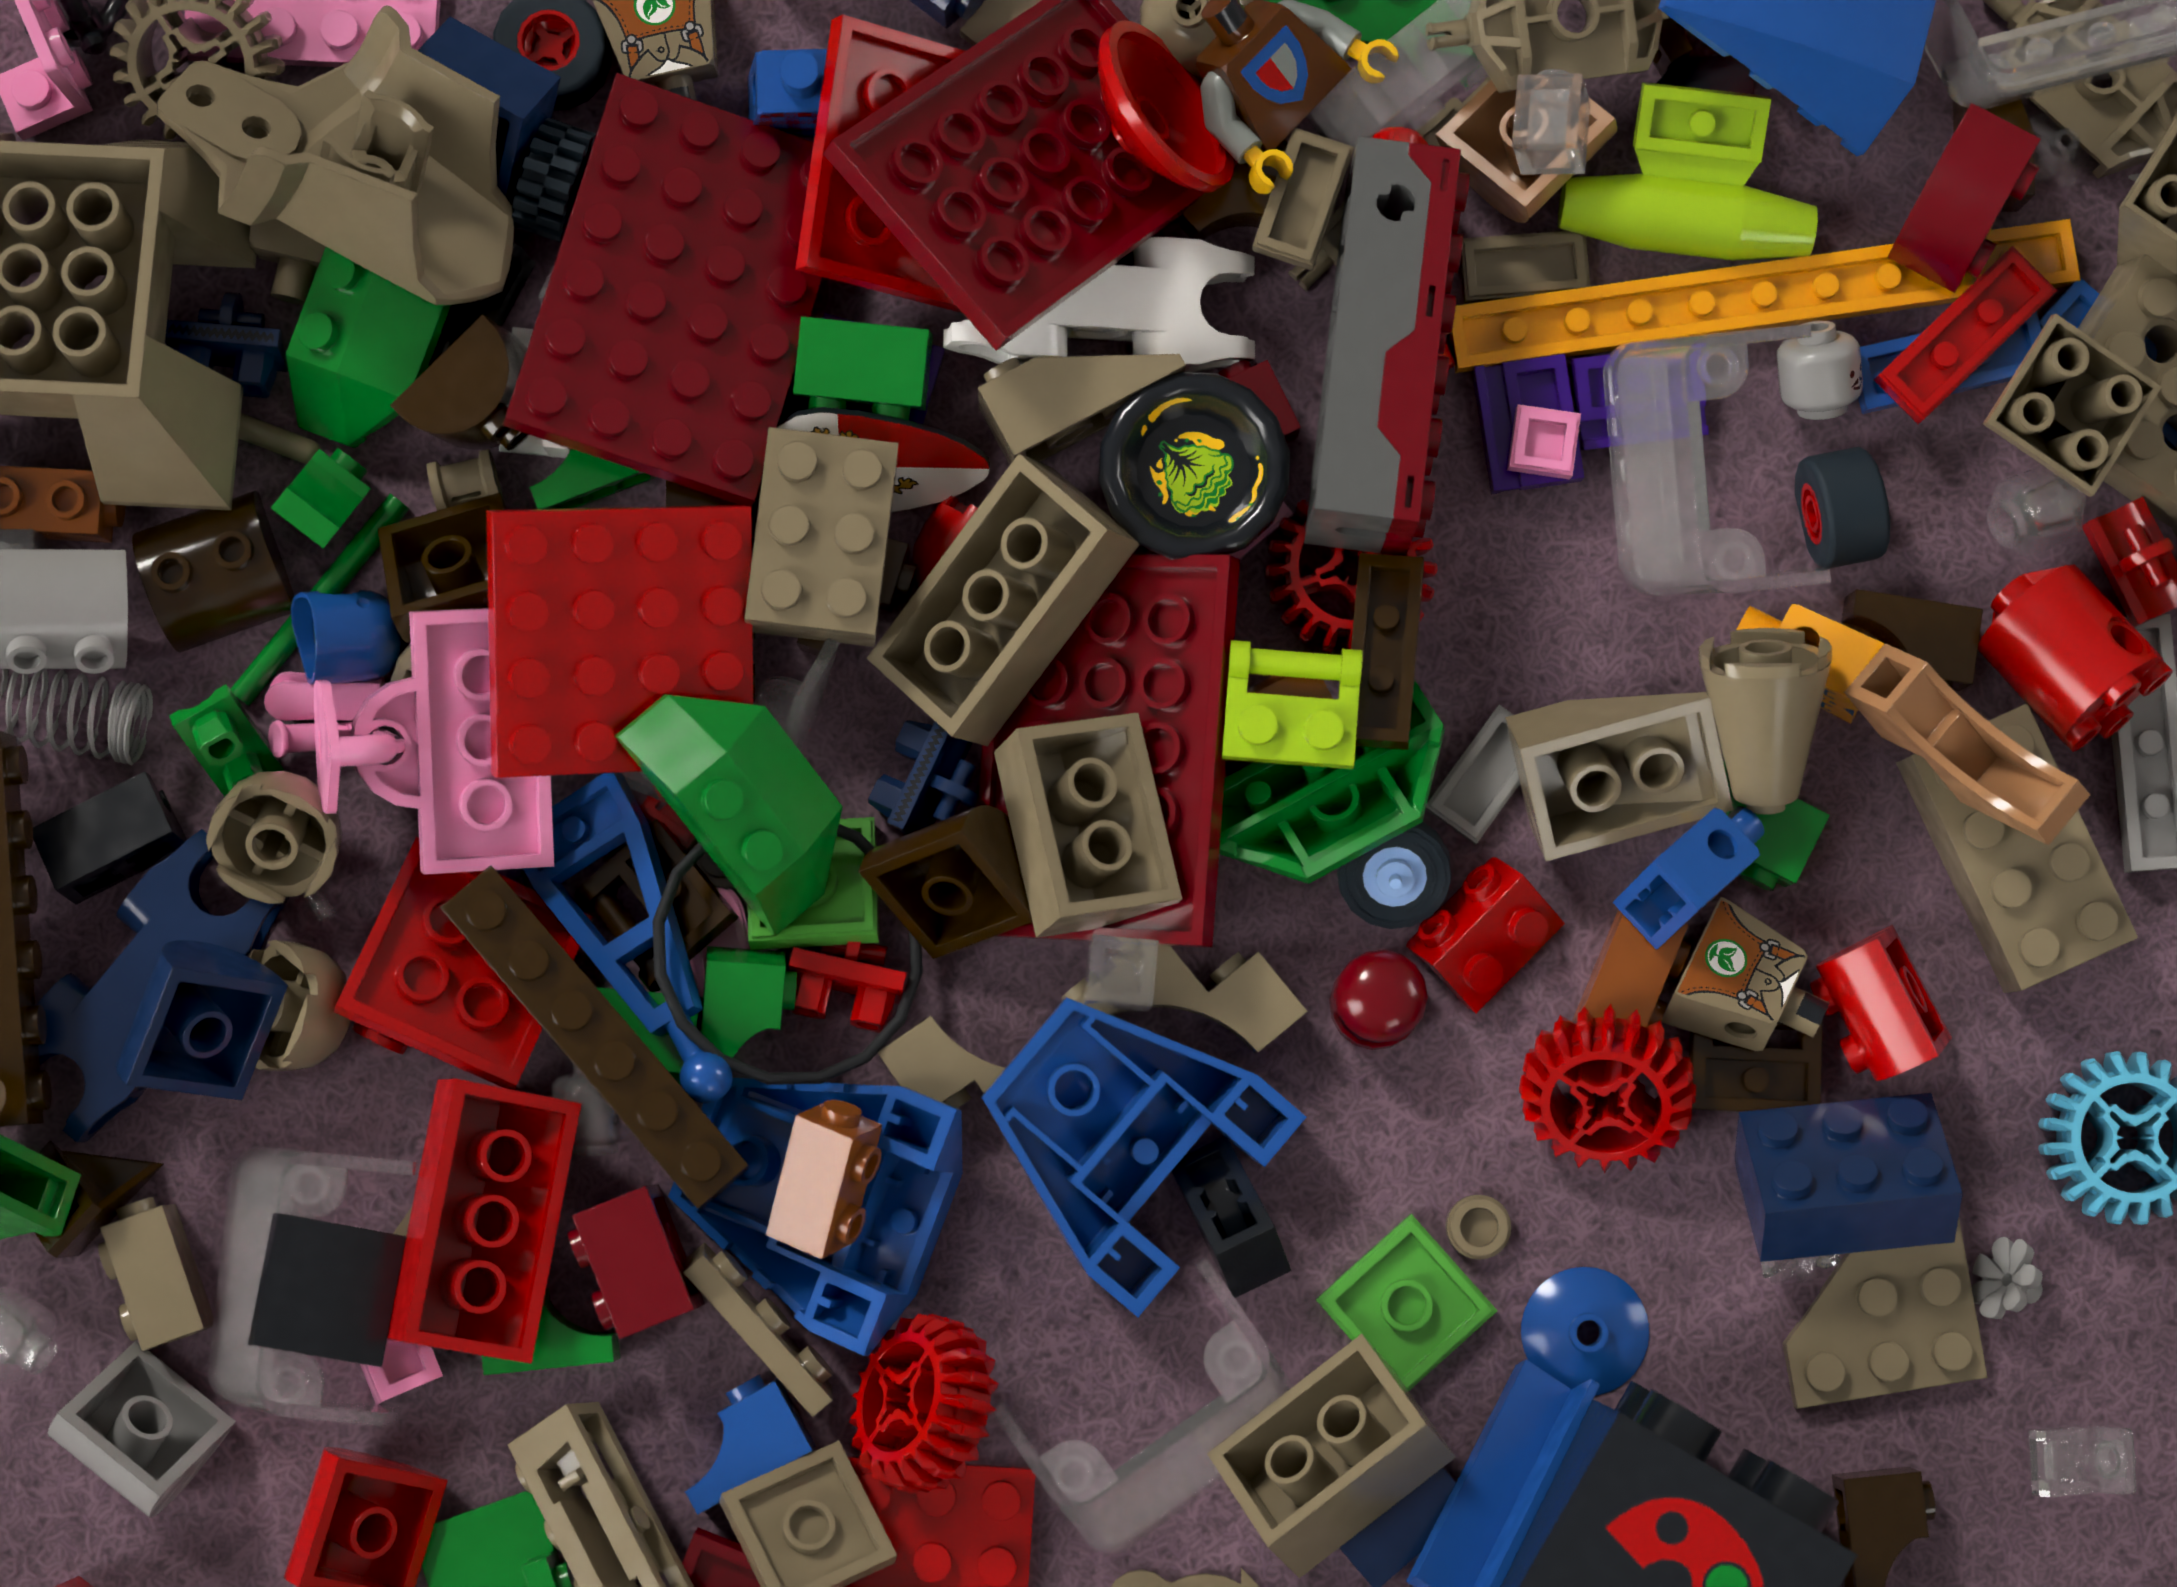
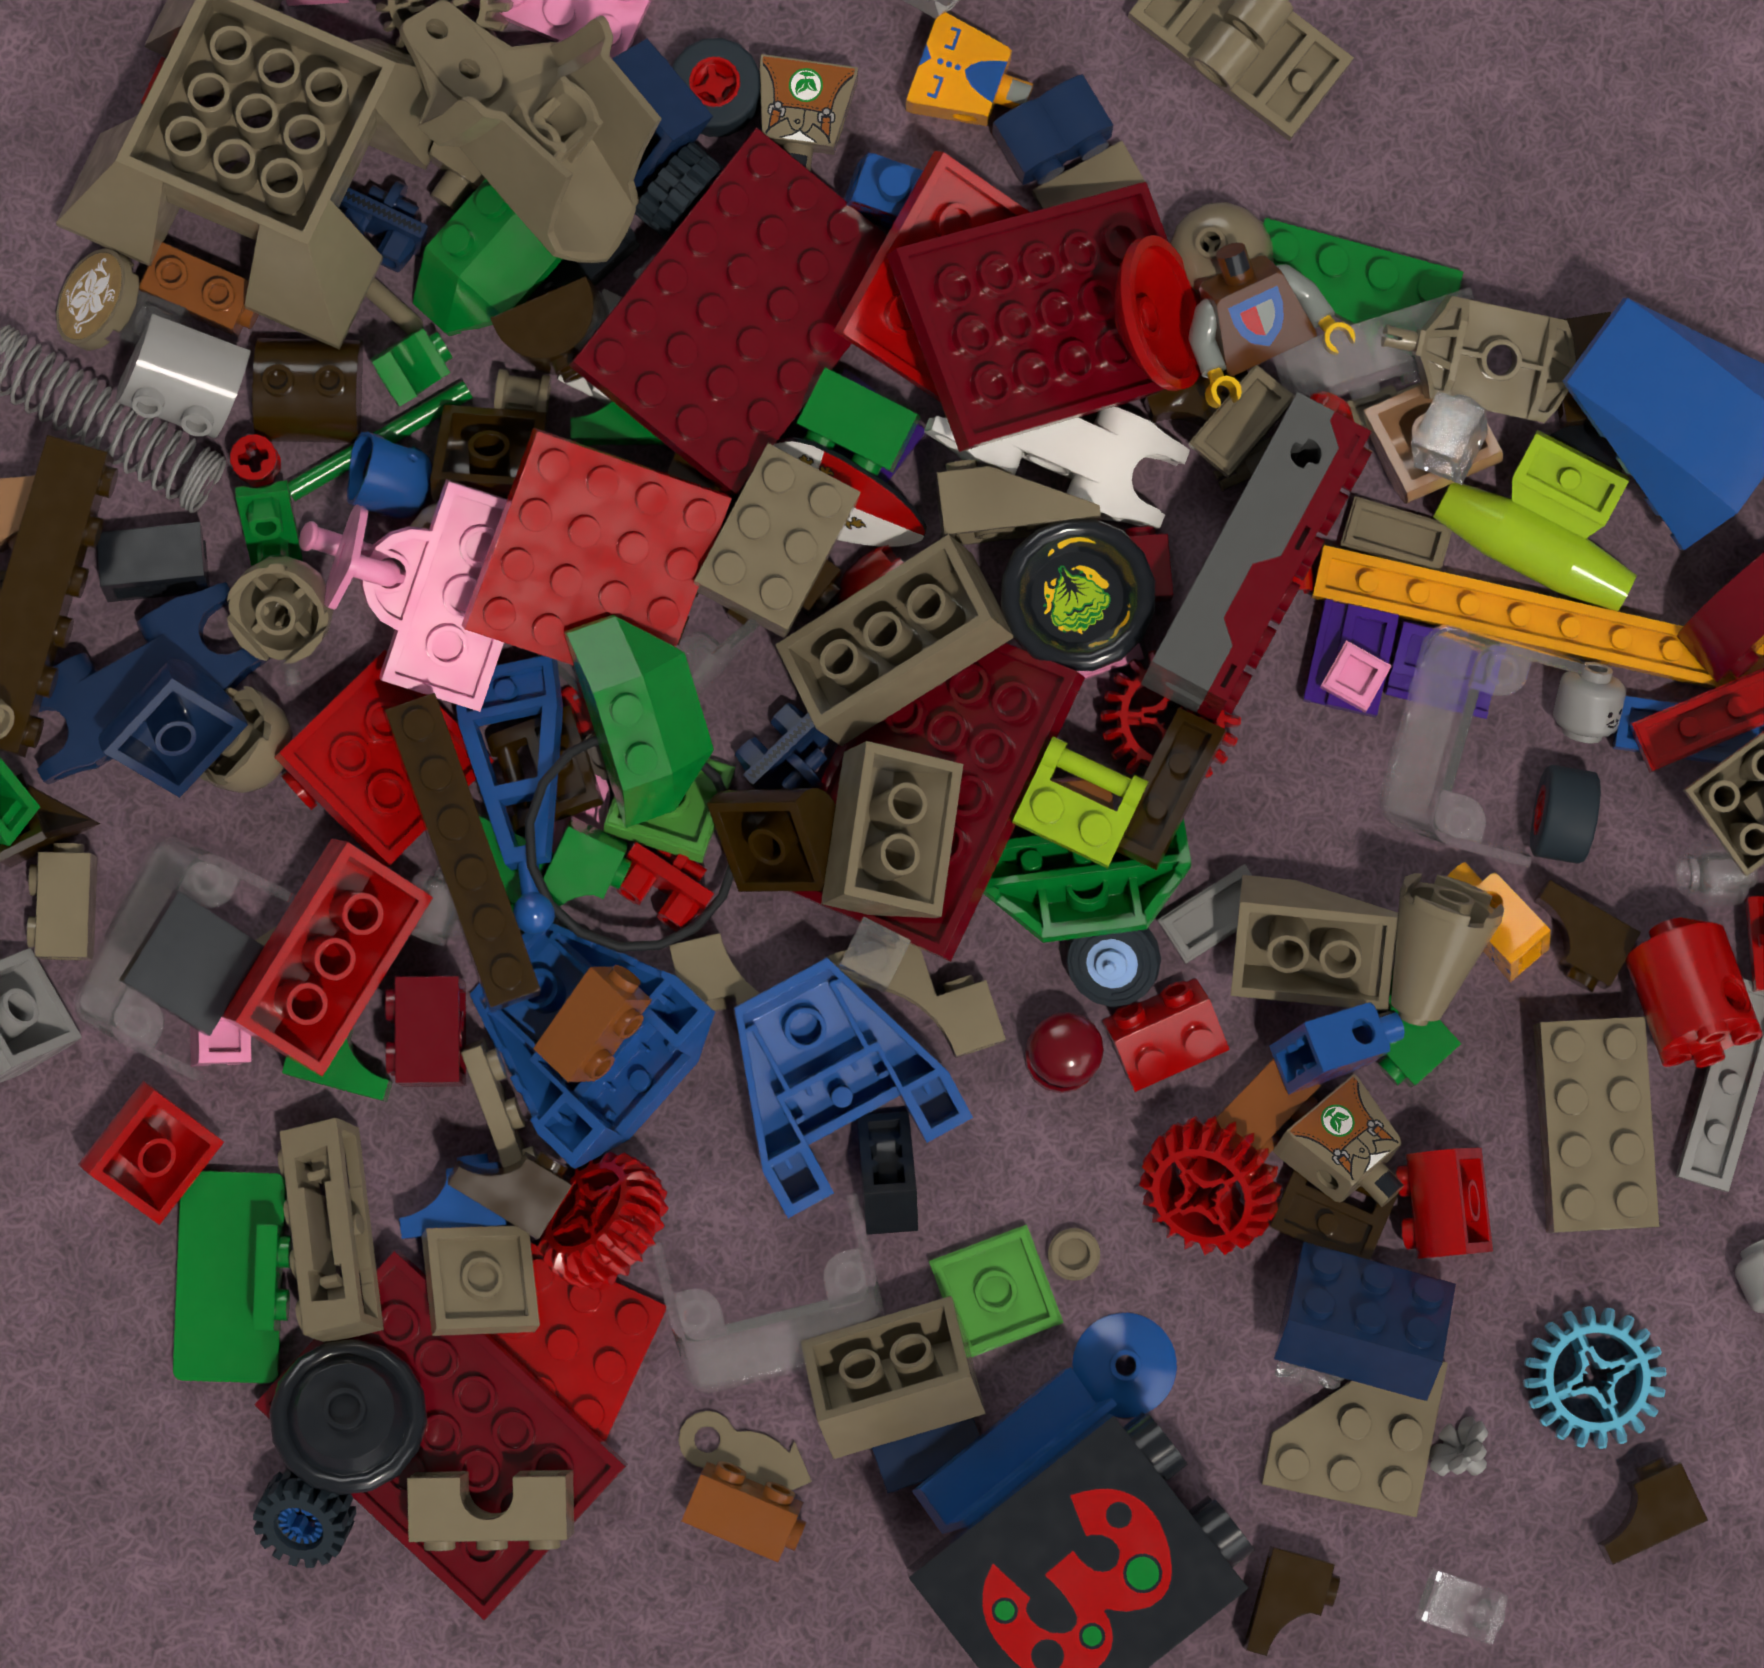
camera: 25 degrees right, 0 degrees up
(164, 675) = (241, 454): none -> red bush
(293, 697) = (332, 510): bright pink bar -> none
(814, 1411) = (519, 1193): none -> dark brown arch
(1973, 758) = (1575, 1027): medium nougat arch -> none

